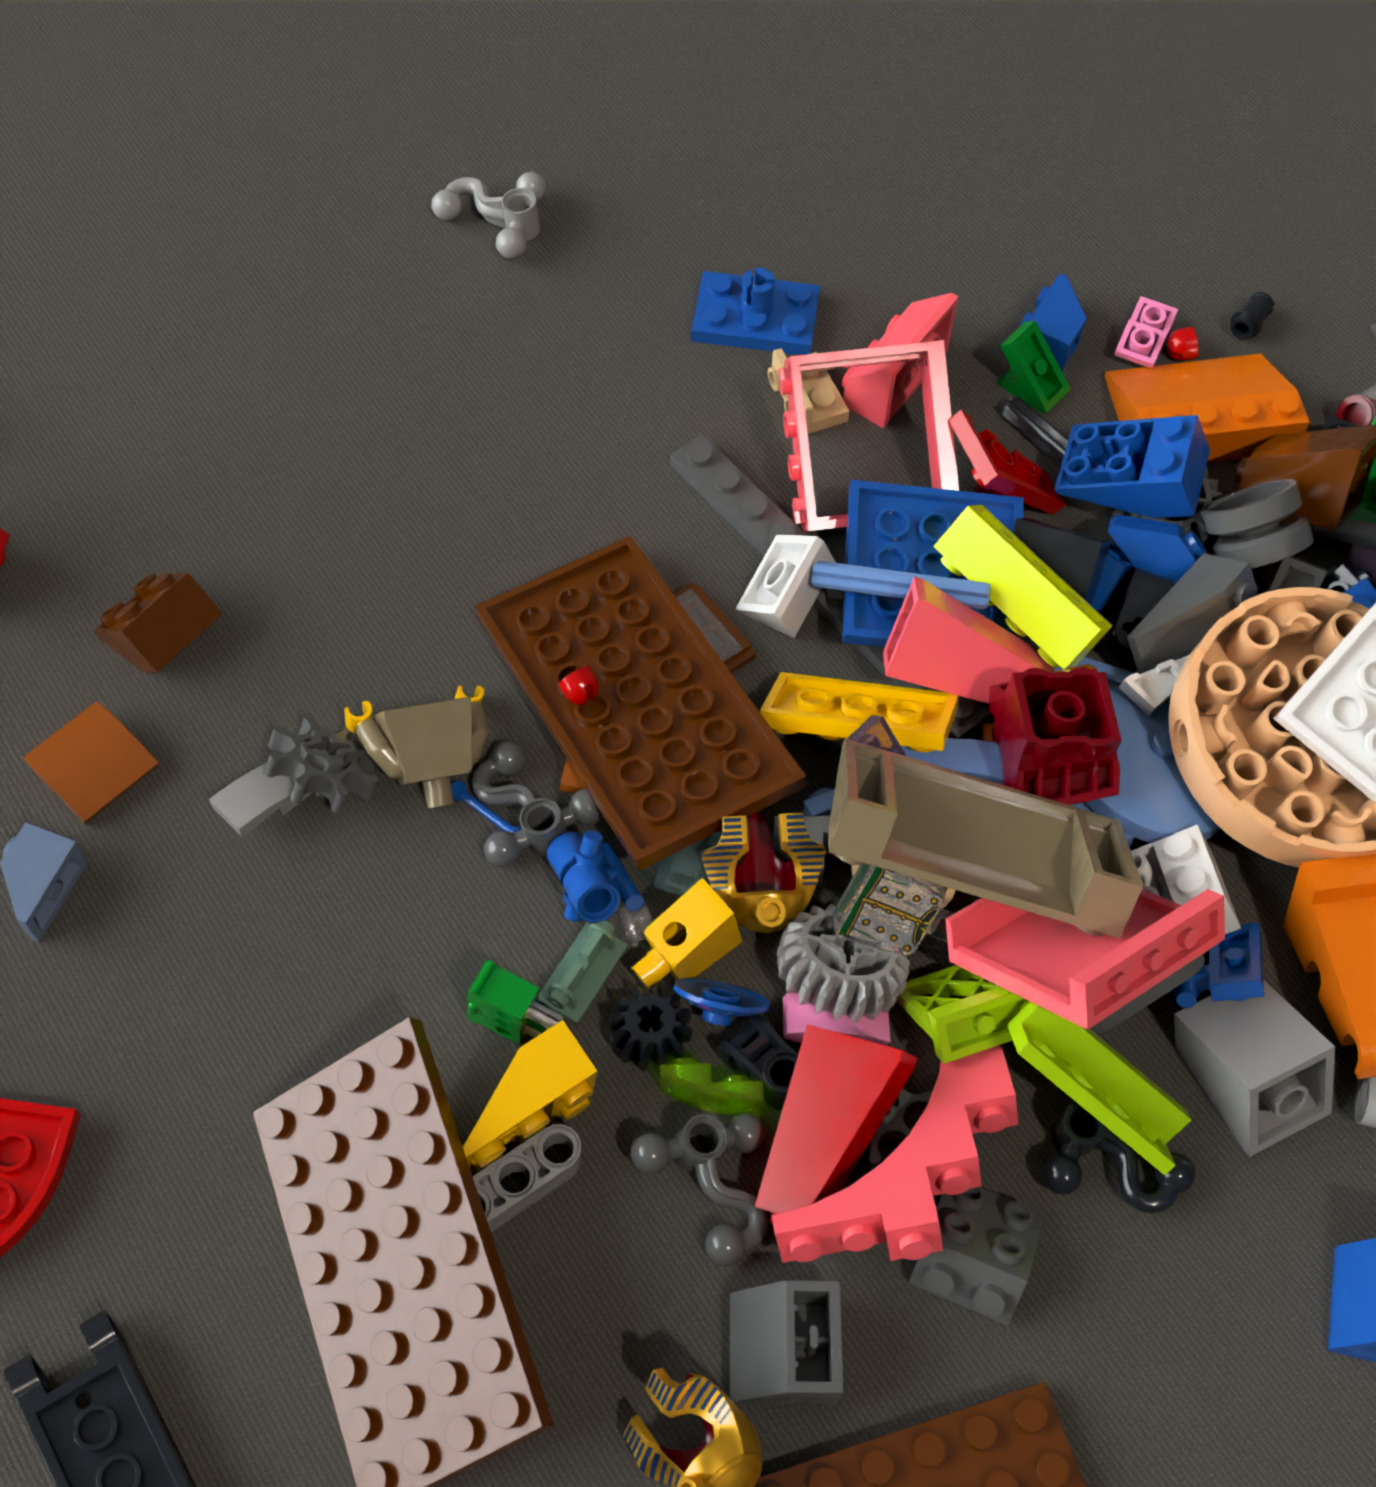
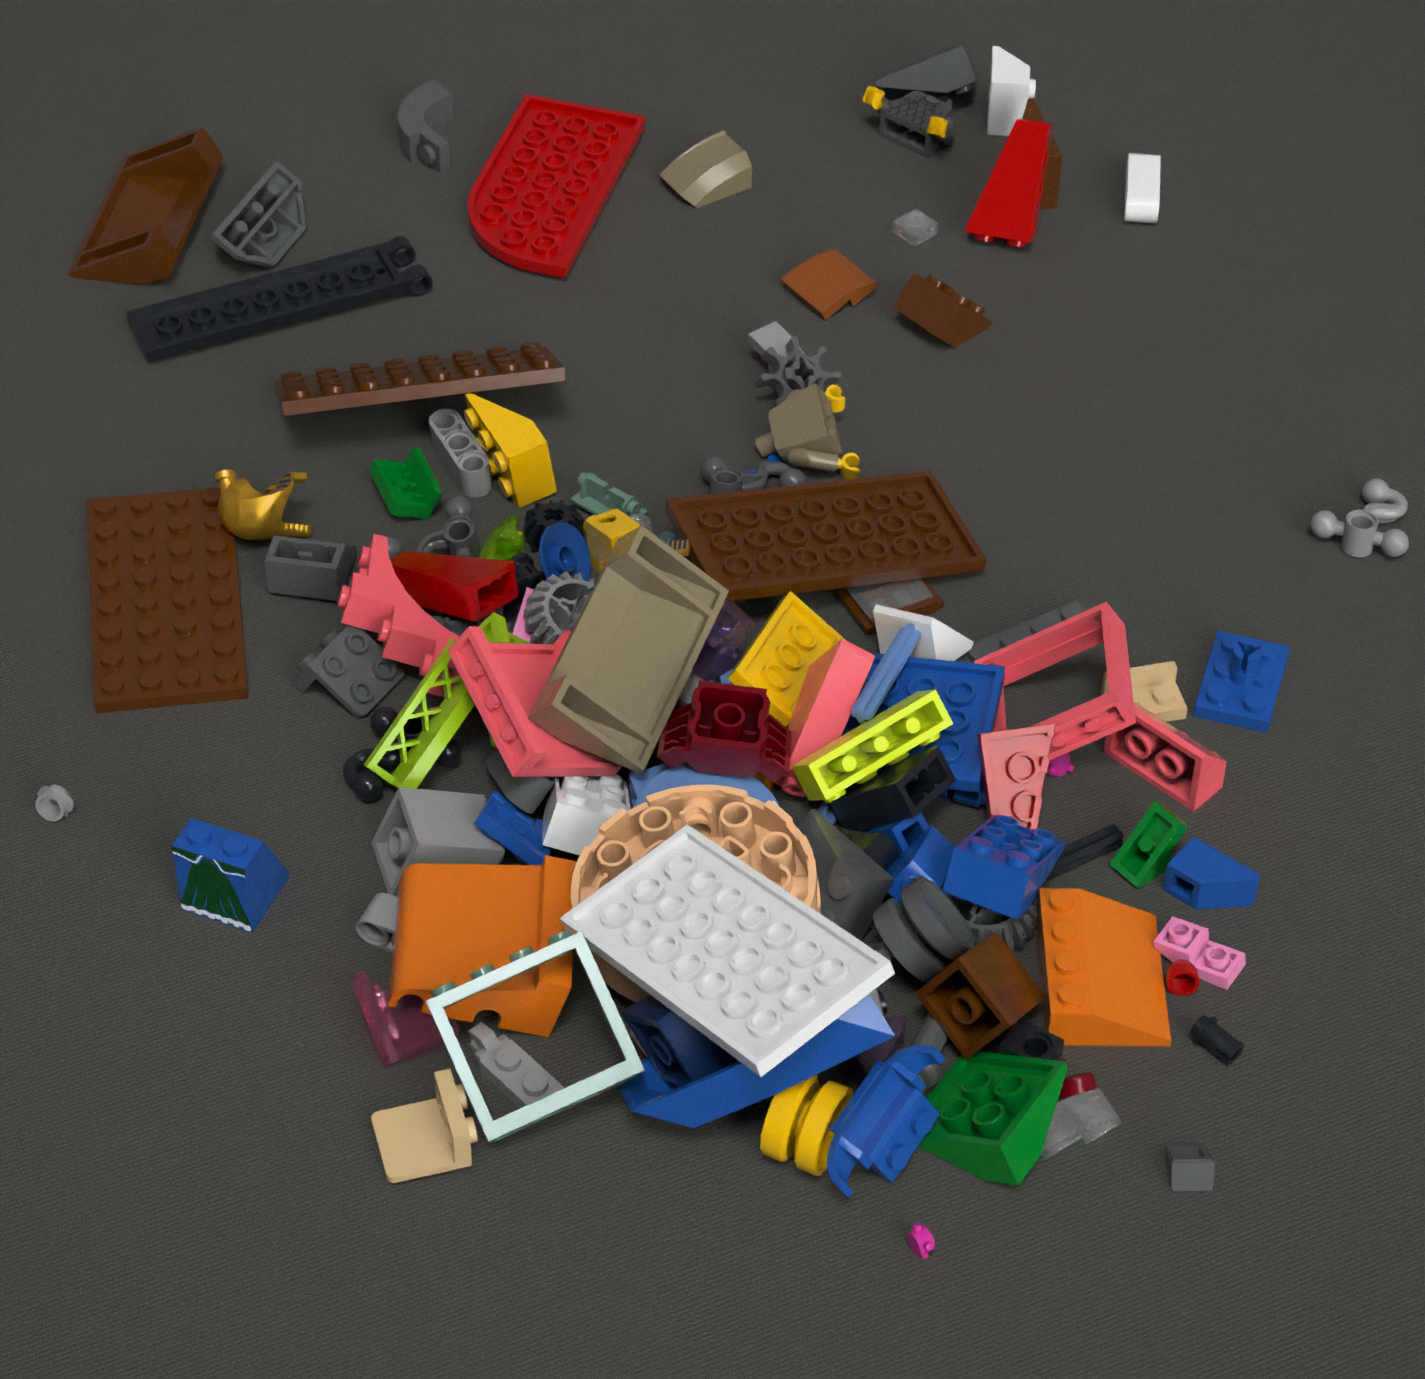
camera: 100 degrees right, 15 degrees down
(40, 875) = (737, 255): sand blue slope -> none
(508, 1004) = (583, 450): green piece -> none
(580, 686) = (828, 494): red hinge -> none
(591, 877) = (654, 490): blue pin -> none
(595, 1244) = (407, 487): none -> green bracket
(916, 461) = (1060, 765): none -> dark pink piece

